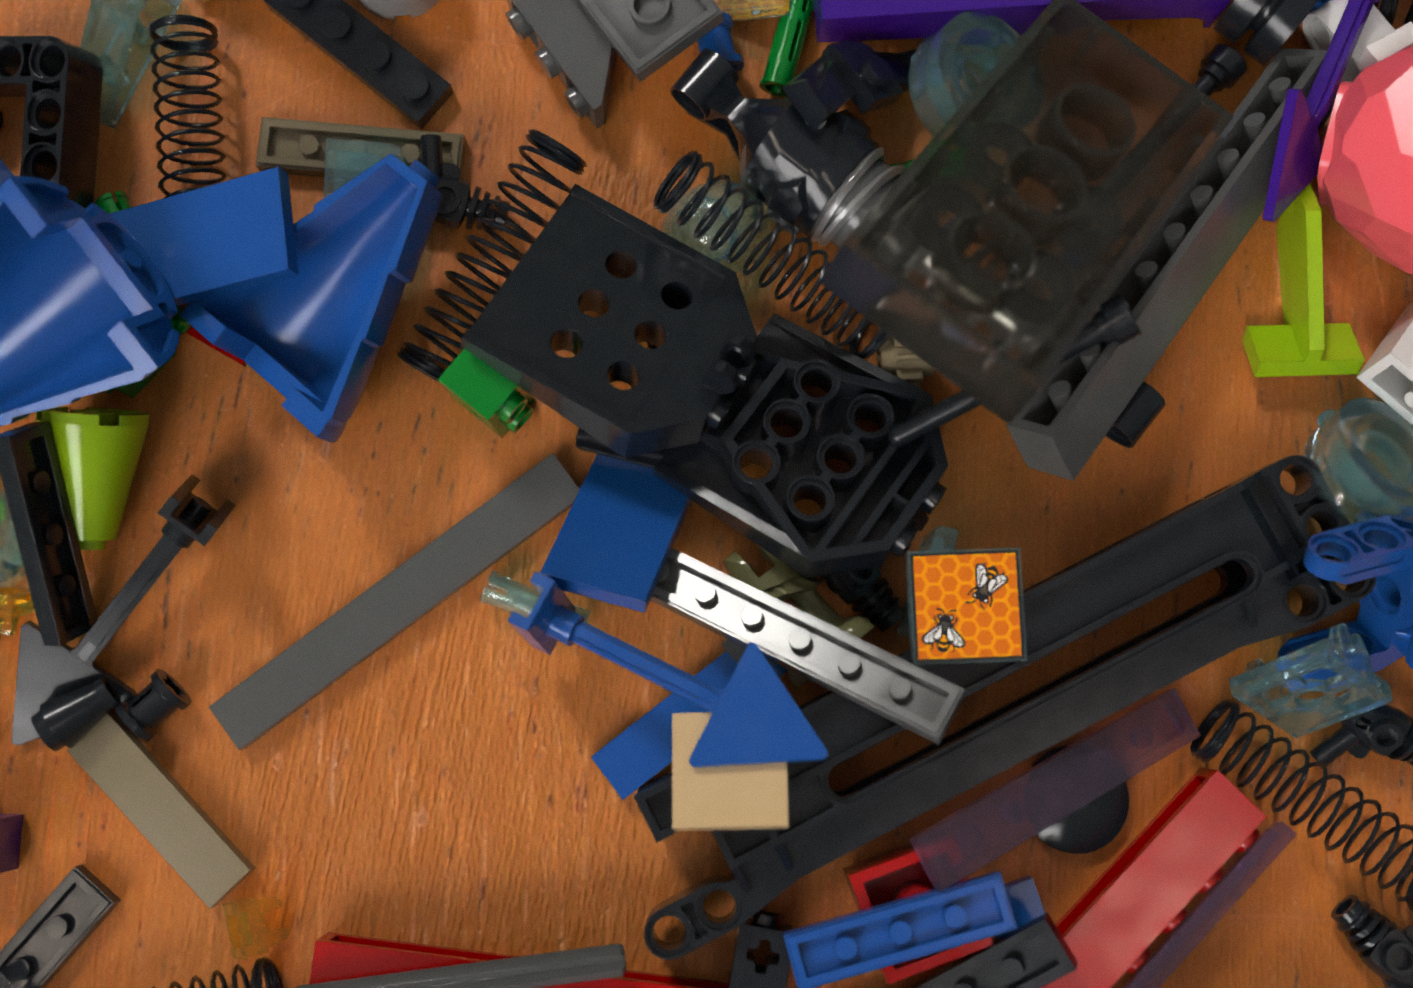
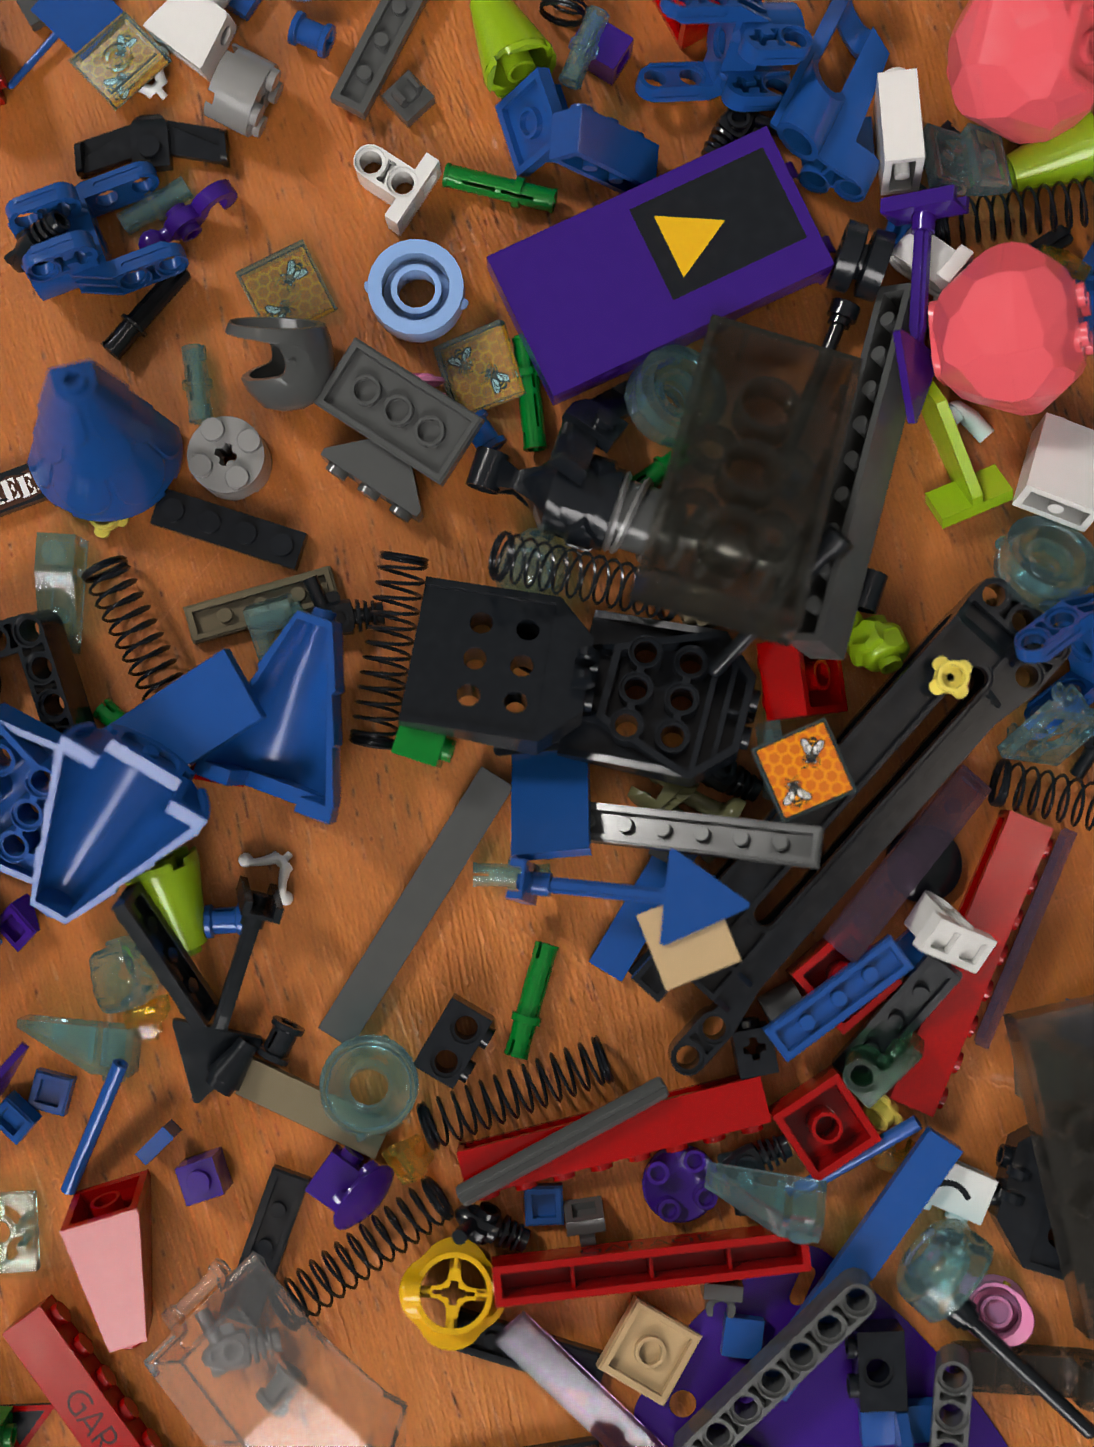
camera: 15 degrees left, 5 degrees up
(138, 520) = (221, 920): none -> blue bush
(149, 913) = (335, 1174): none -> dark purple brick
(168, 951) = (362, 1196): none -> dark purple dish
(209, 458) = (247, 860): none -> white piece
(226, 764) = (363, 1054): none -> clear light blue piece
(298, 869) = (429, 1127): none -> black piece
(369, 783) = (447, 1037): none -> black brick
(490, 787) = (529, 1006): none -> green pin
(820, 903) = (779, 999): none -> dark grey beam
(999, 498) = (799, 685): none -> red brick
(1077, 902) = (947, 934): none -> white tile
(1117, 489) = (877, 644): none -> lime head
(1220, 553) = (959, 669): none -> light yellow plate
(1339, 259) = (971, 420): none -> light aqua arm

